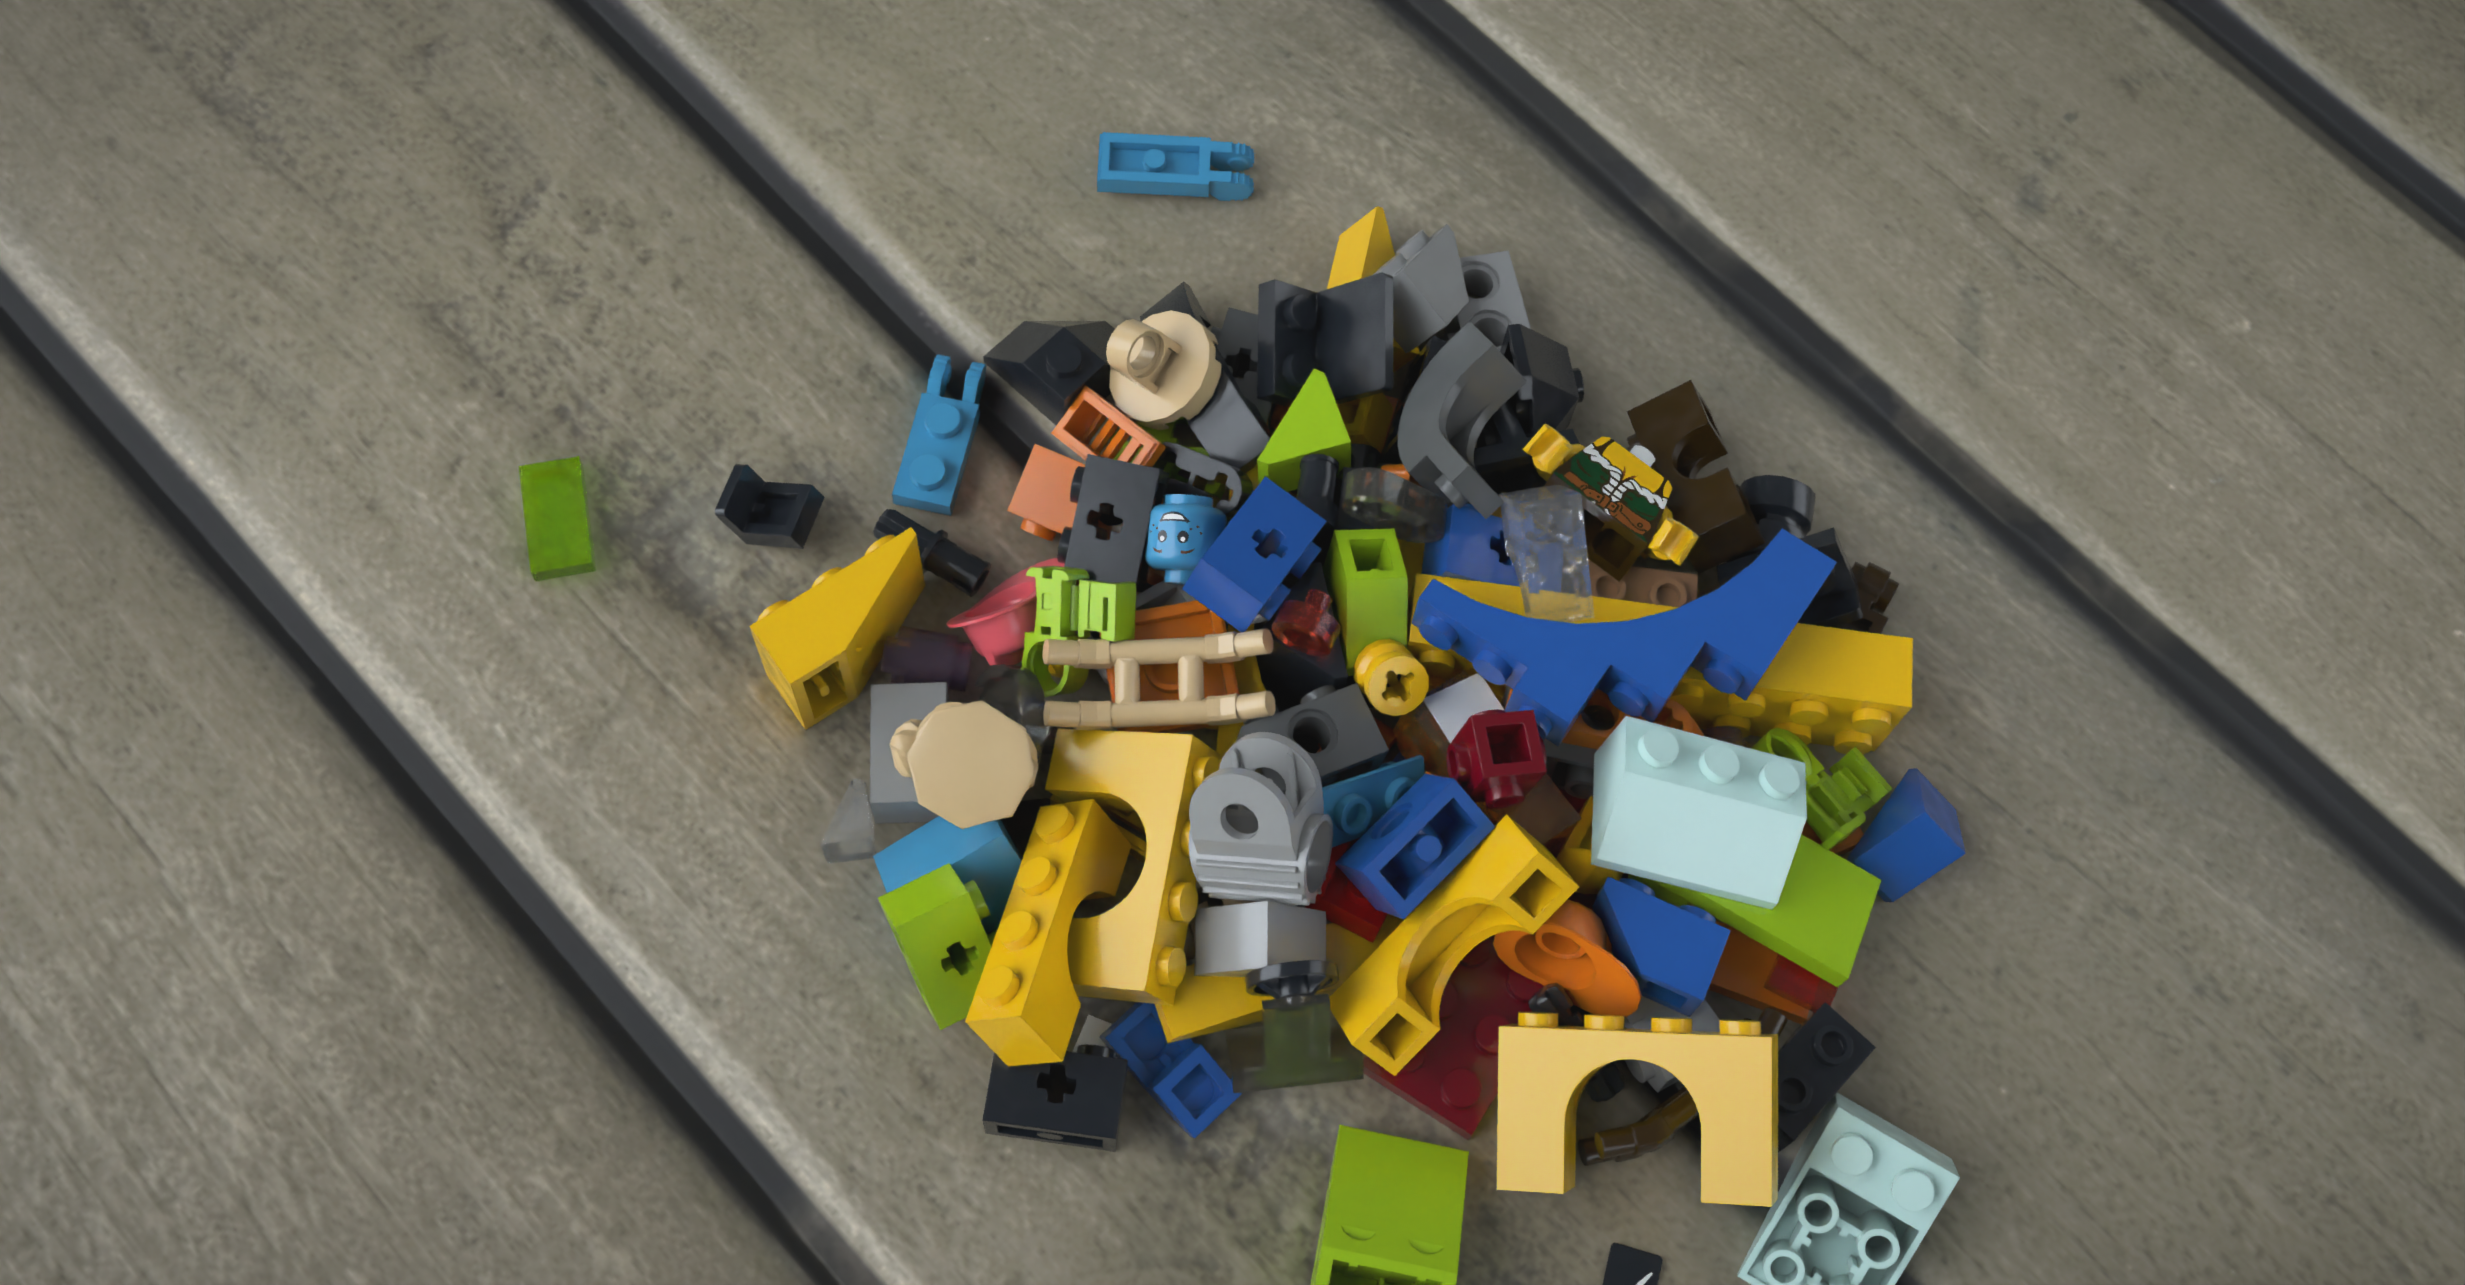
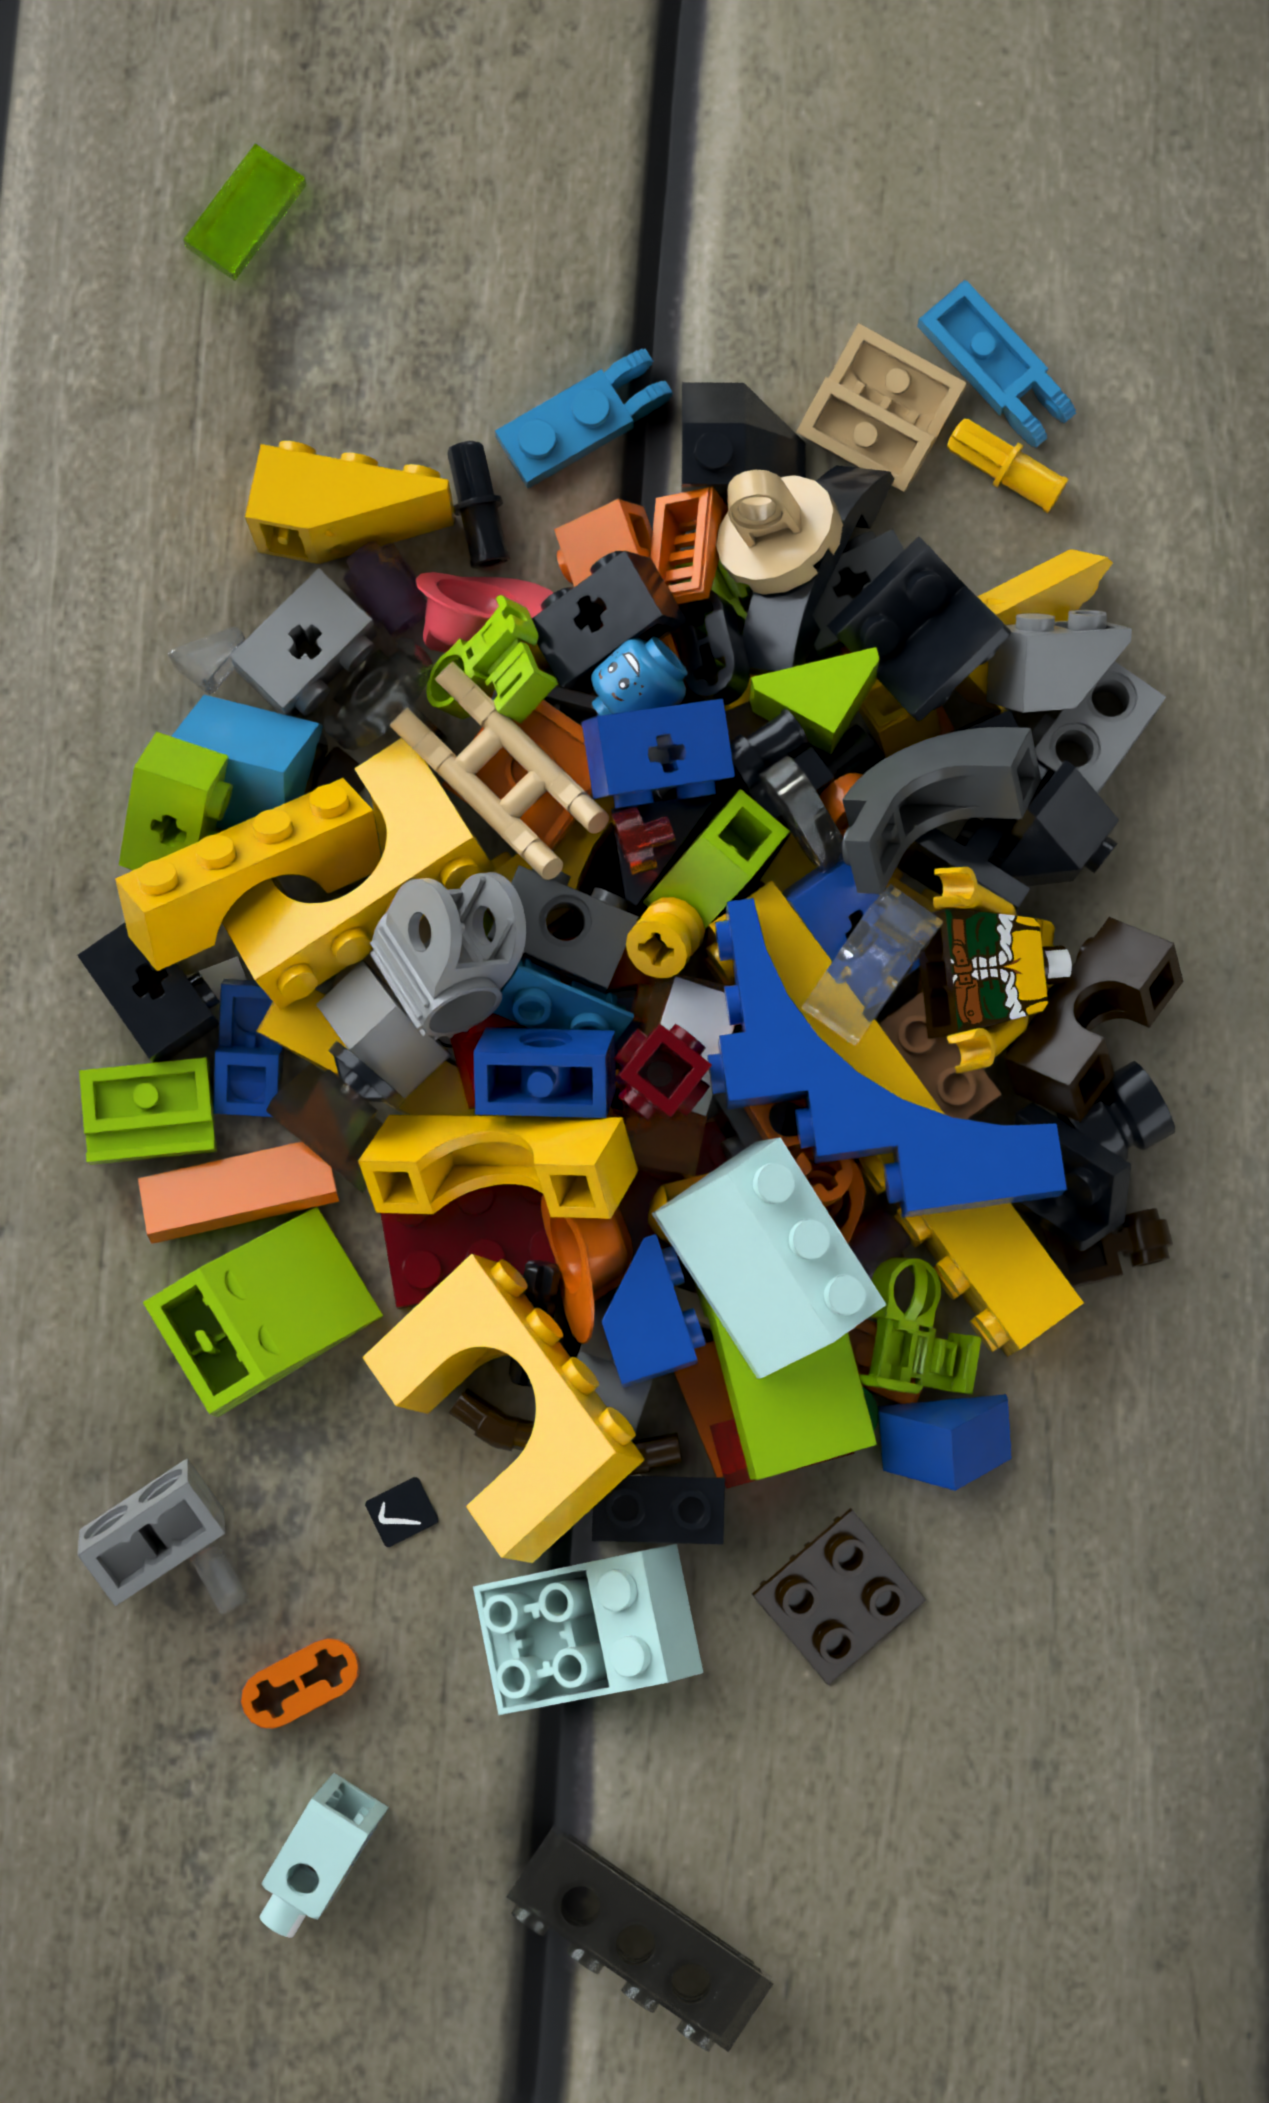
camera: 55 degrees right, 15 degrees up
(768, 511) = (392, 354): black bracket -> none
(966, 762) = (307, 696): tan piece -> none
(1129, 254) = (882, 407): none -> tan slope
(1147, 1185) = (148, 1111): none -> lime plate
(1248, 218) = (1006, 464): none -> yellow axle
(1271, 1175) = (235, 1191): none -> orange tile
(1965, 1012) = (838, 1596): none -> dark brown hinge

